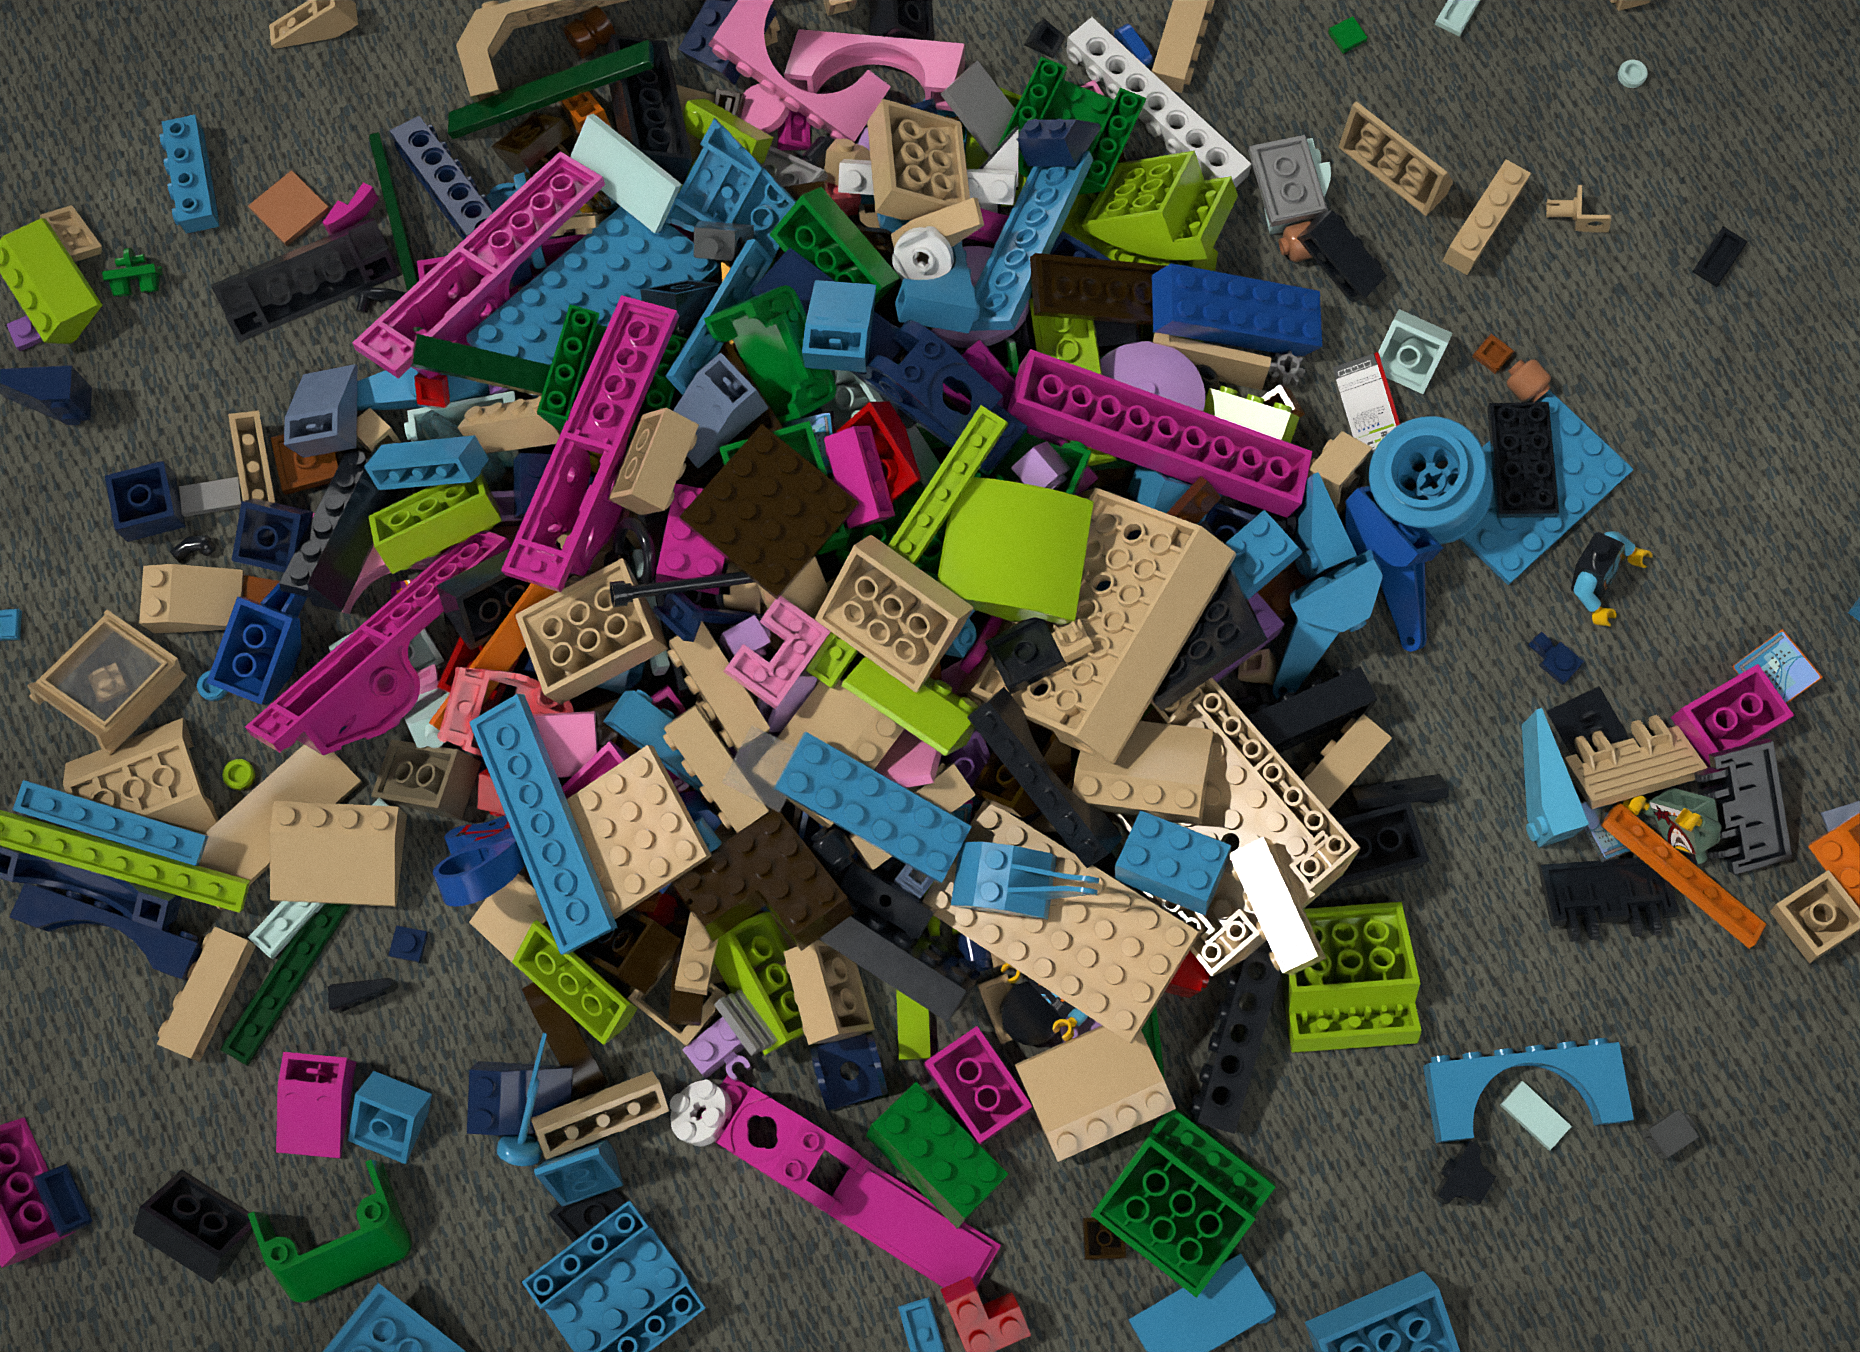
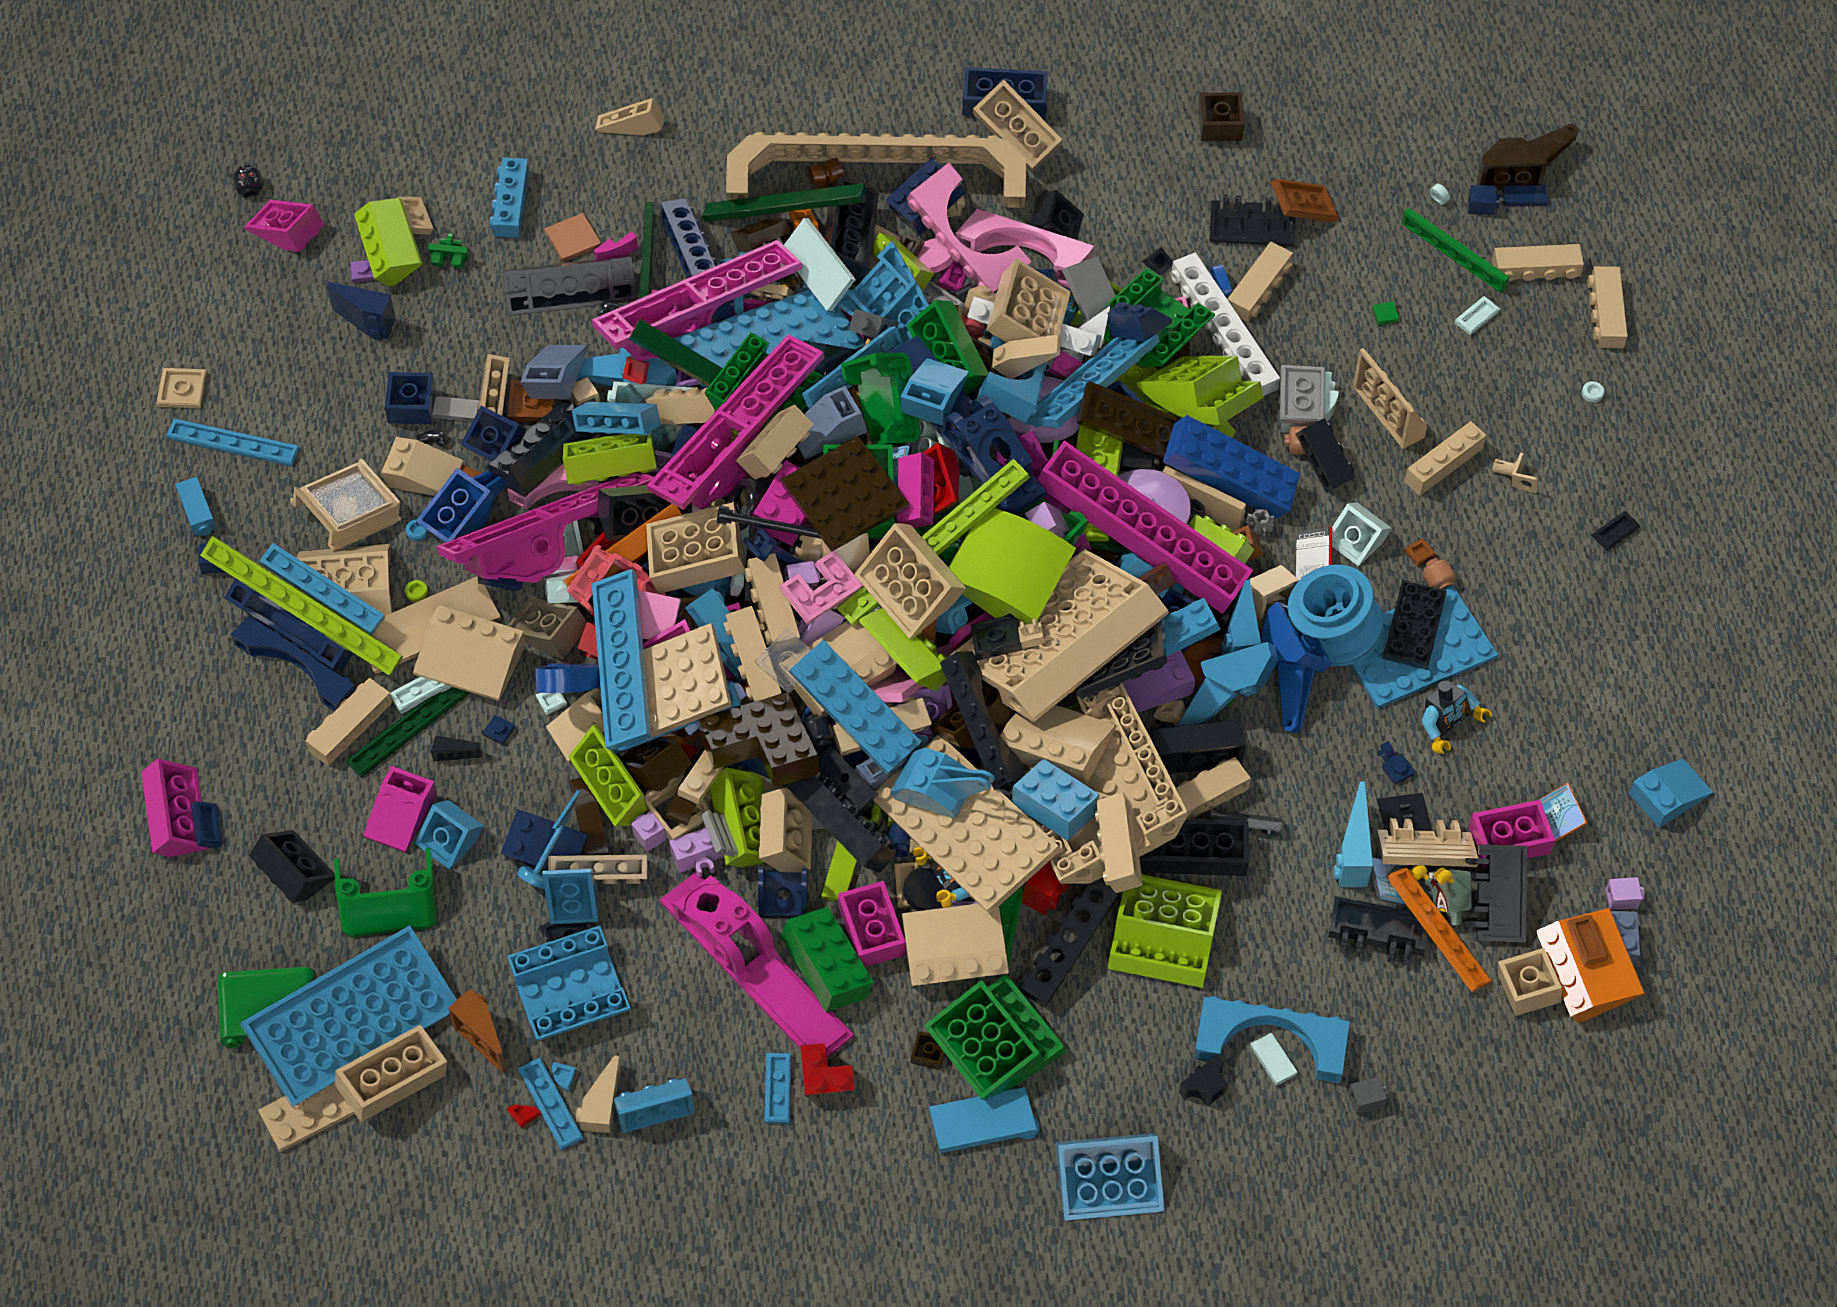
camera: 15 degrees right, 15 degrees down
(648, 1036) = (648, 831): none -> lavender brick
(687, 1104) = (667, 888): white plate -> none
(927, 241) = (1016, 355): white plate -> none

